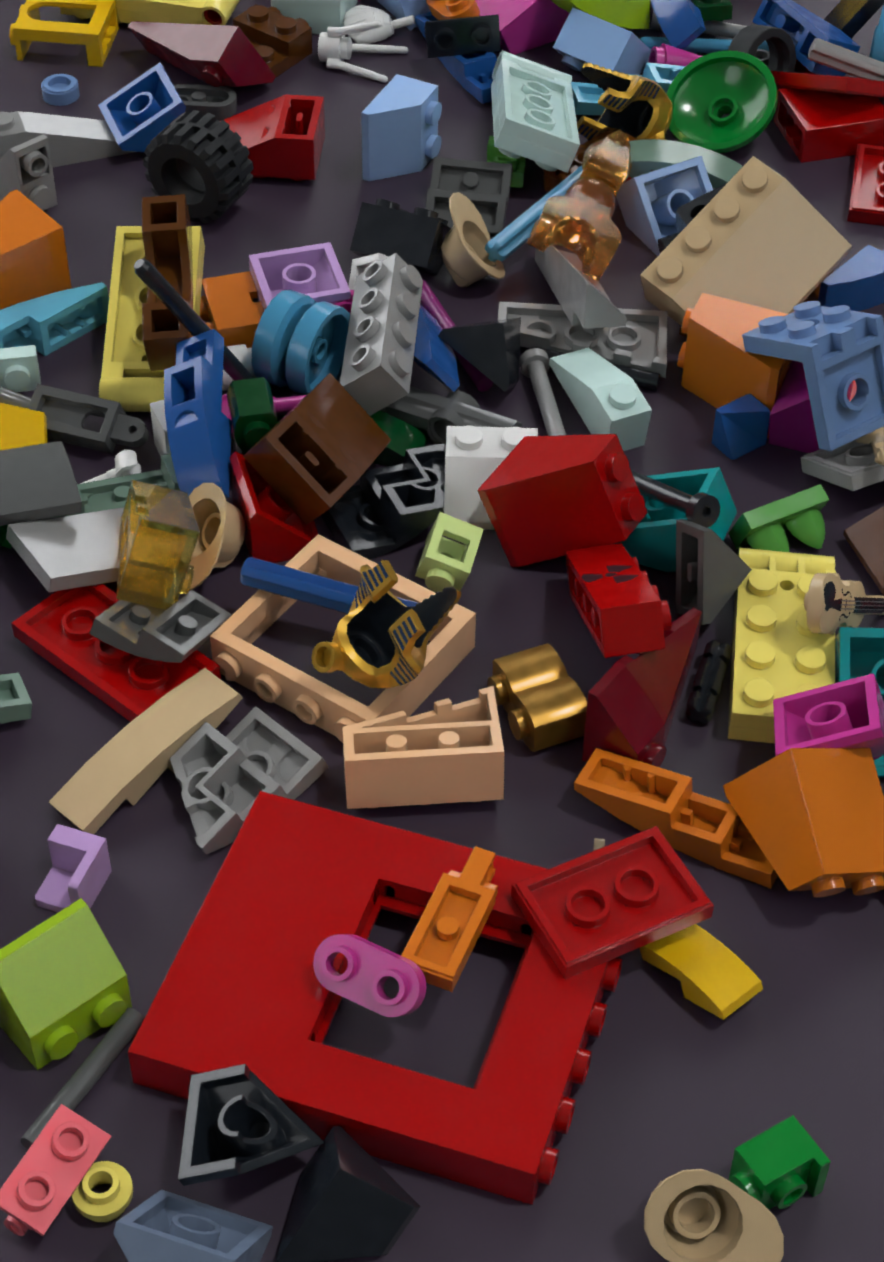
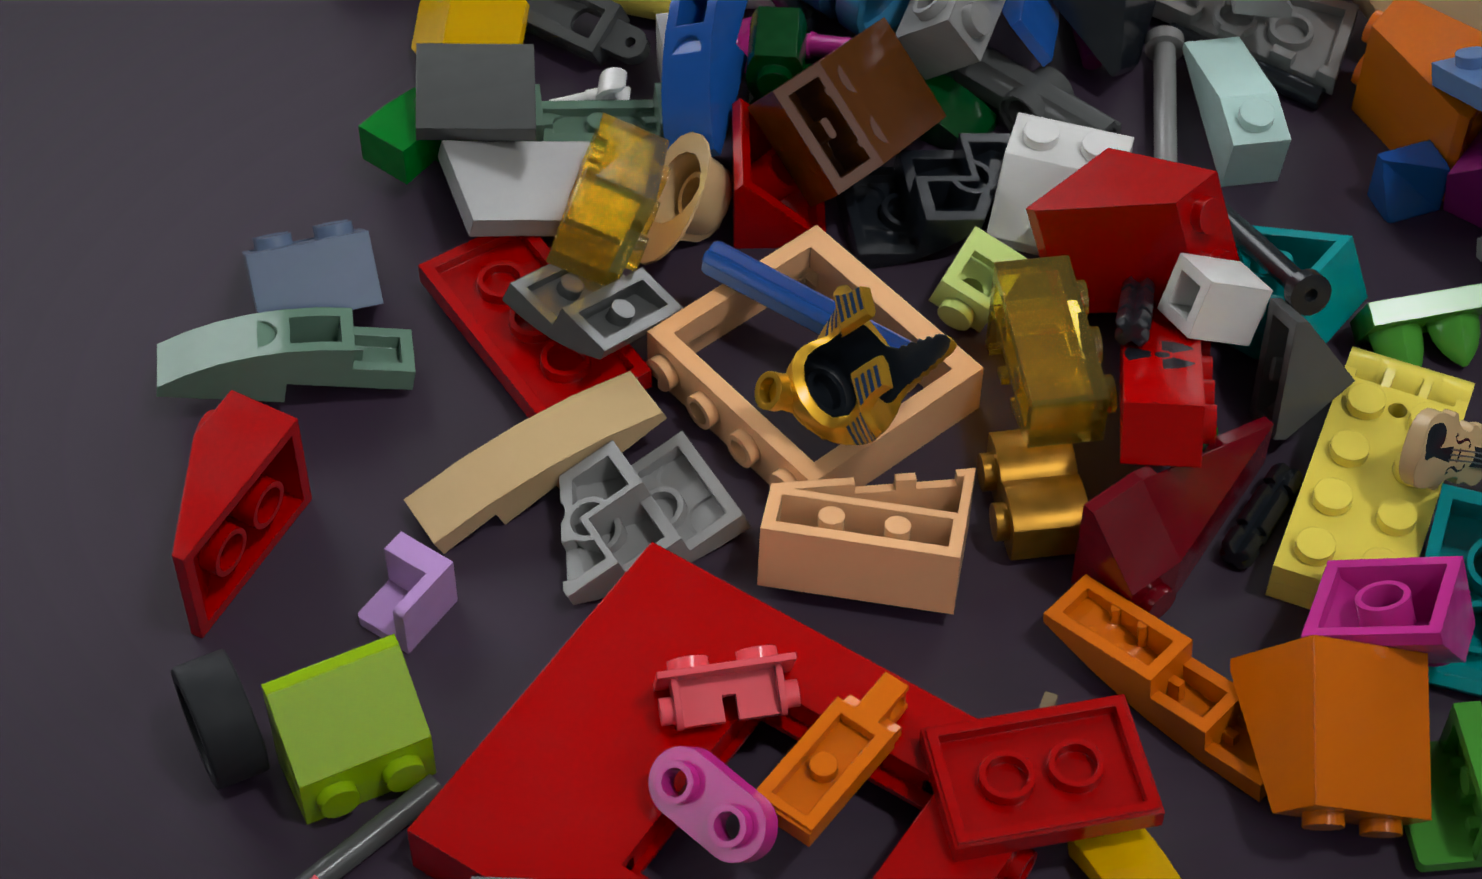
camera: 15 degrees right, 5 degrees up
(332, 889) = (752, 678): none -> coral hinge
(522, 591) = (1049, 352): none -> clear yellow wedge
(579, 549) = (1135, 311): none -> black axle
(635, 529) = (1214, 299): none -> white brick

